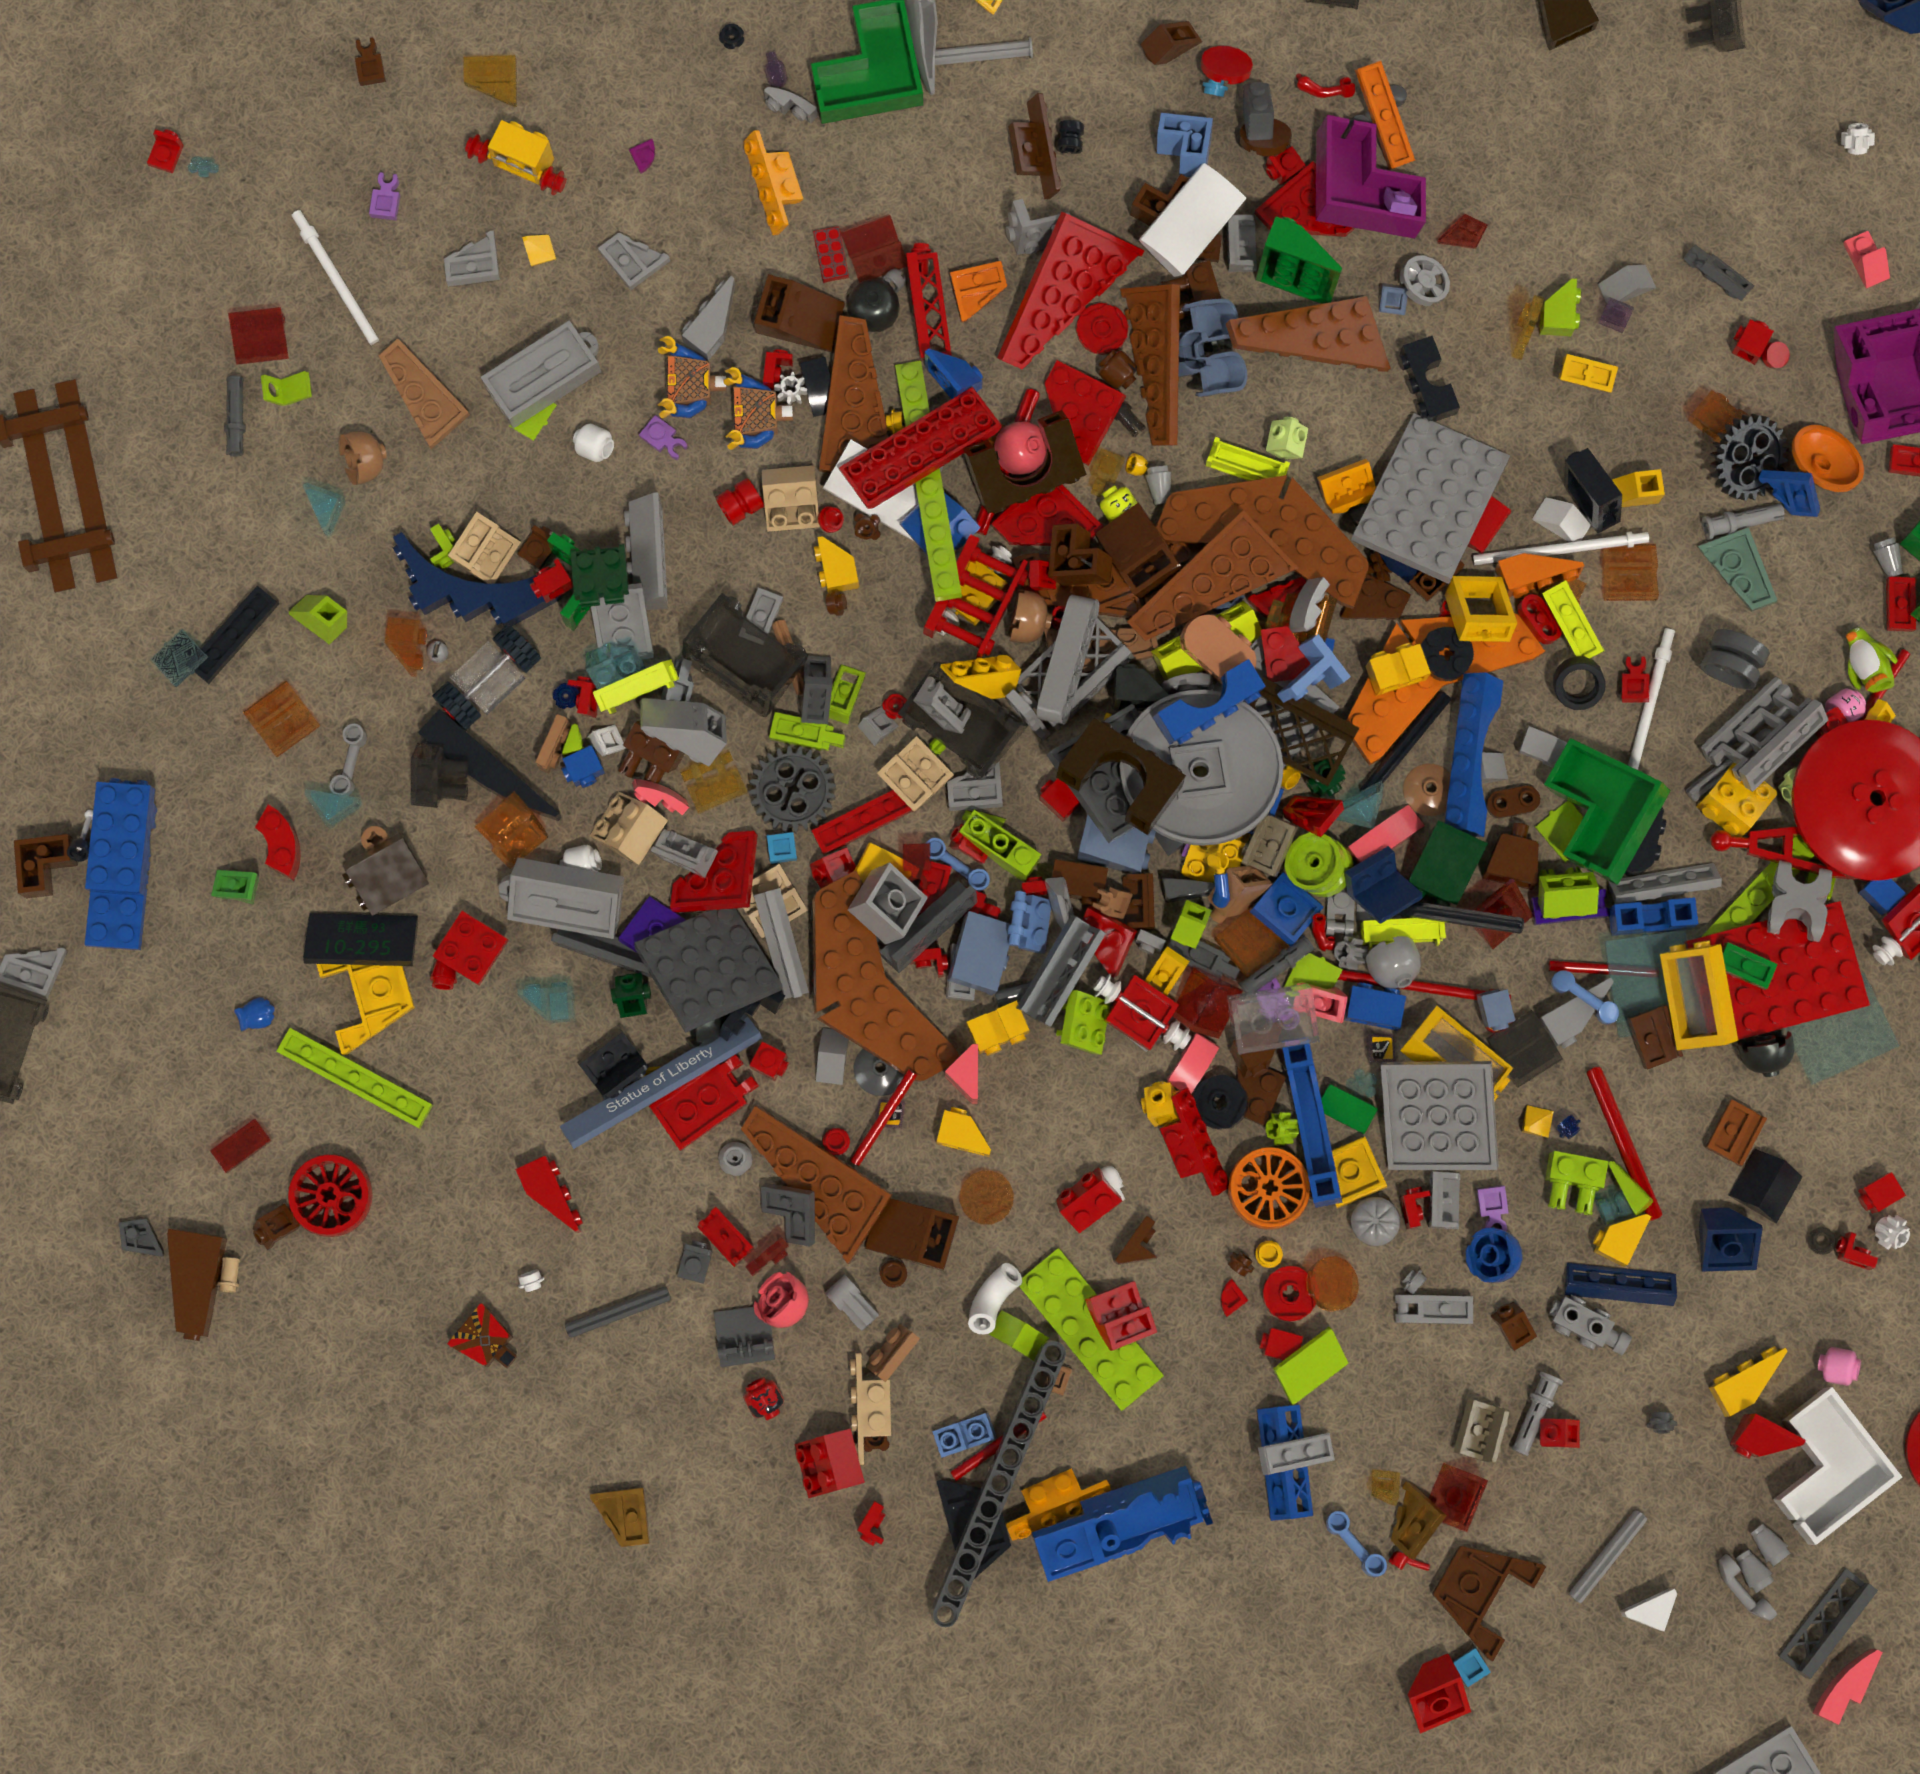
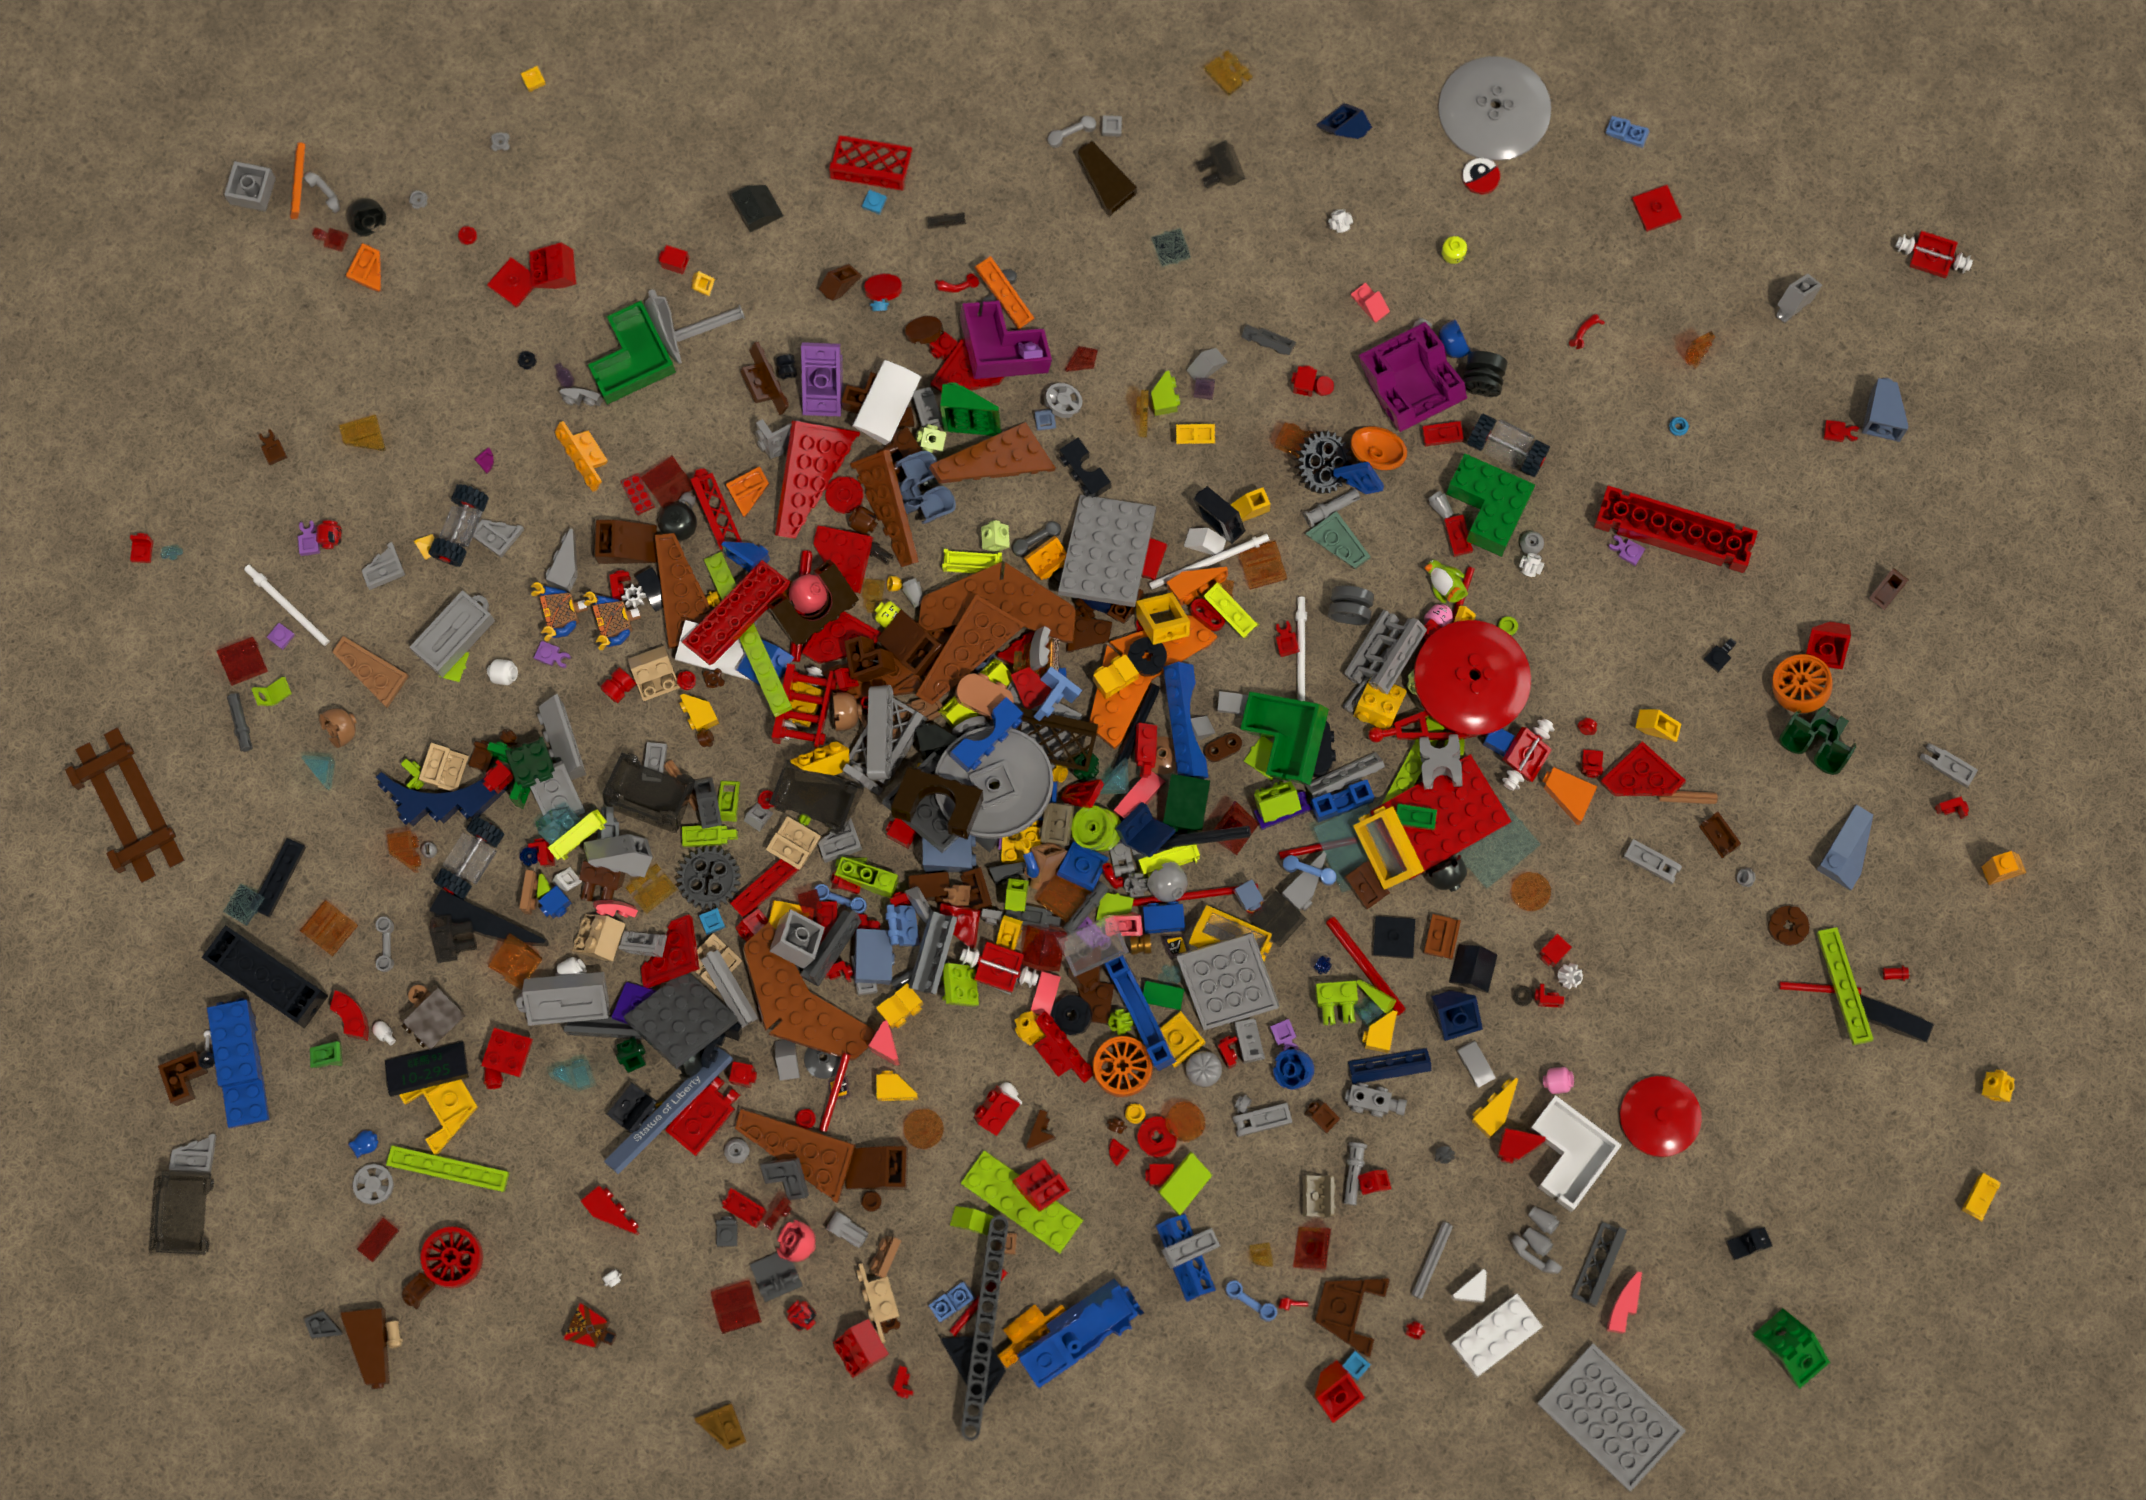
camera: 10 degrees left, 5 degrees down
(181, 761) = (265, 976): none -> black plate
(253, 1071) = (373, 1184): none -> light grey piece
(317, 316) = (280, 636): none -> medium lavender plate
(317, 875) = (383, 1032): none -> white cylinder
(321, 616) = (338, 847): lime slope -> none
(332, 807) = (382, 980): clear light blue slope -> none
(413, 198) = (328, 534): none -> red head
(520, 154) = (396, 482): yellow brick -> none
(579, 532) = (508, 737): none -> reddish brown plate
(587, 233) = (459, 525): none -> plate
(617, 1312) = (680, 1283): dark grey axle -> none
(681, 1362) = (736, 1306): none -> clear red slope
(941, 706) = (799, 790): light grey hinge -> none
(991, 1297) = (945, 1197): white cylinder -> none
(1114, 166) = (822, 379): none -> medium lavender brick
(1187, 138) = (868, 346): medium blue brick -> none
(1244, 287) = (937, 438): none -> yellowish green brick
(1258, 111) = (913, 313): dark grey brick -> none
(1317, 460) = (1021, 546): none -> dark grey bar
(1336, 1033) = (1140, 944): none -> pearl gold wheel
(1411, 775) = (1145, 748): none -> red hinge
(1415, 1521) = (1289, 1273): pearl gold wing -> none
(1514, 858) = (1234, 786): reddish brown torso -> none
(1537, 1121) = (1300, 967): yellow slope -> none
(1561, 1642) = (1415, 1328): none -> red plate
(1588, 700) = (1252, 665): black tyre -> none
(1621, 113) = (1171, 247): none -> clear light blue piece
(1666, 1680) = (1496, 1335): none -> white brick
(1672, 1116) = (1394, 937): none -> black plate
(1736, 1313) = (1476, 1063): none -> light grey slope
(1863, 1111) = (1525, 890): none -> clear orange tile

